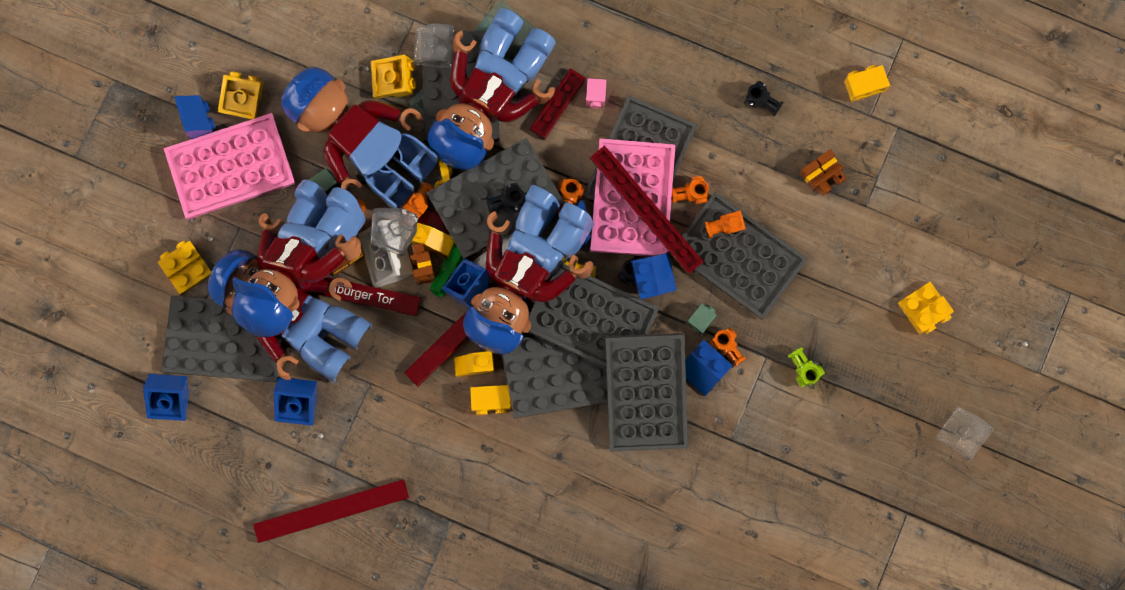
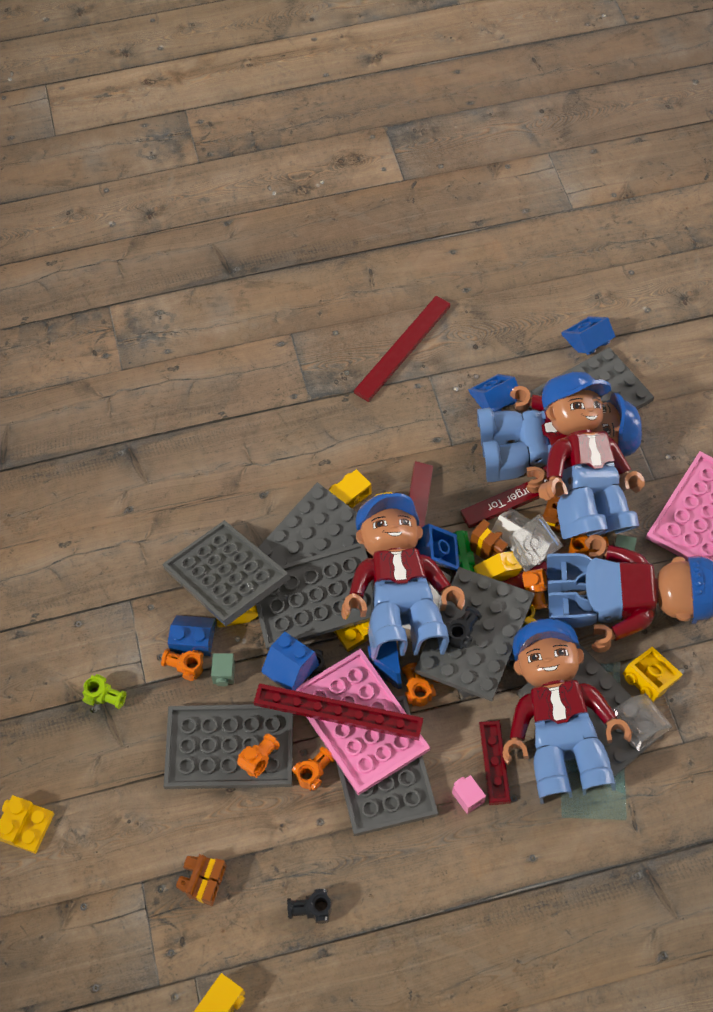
camera: 145 degrees right, 20 degrees down
(184, 267) = (665, 422): yellow plate -> none

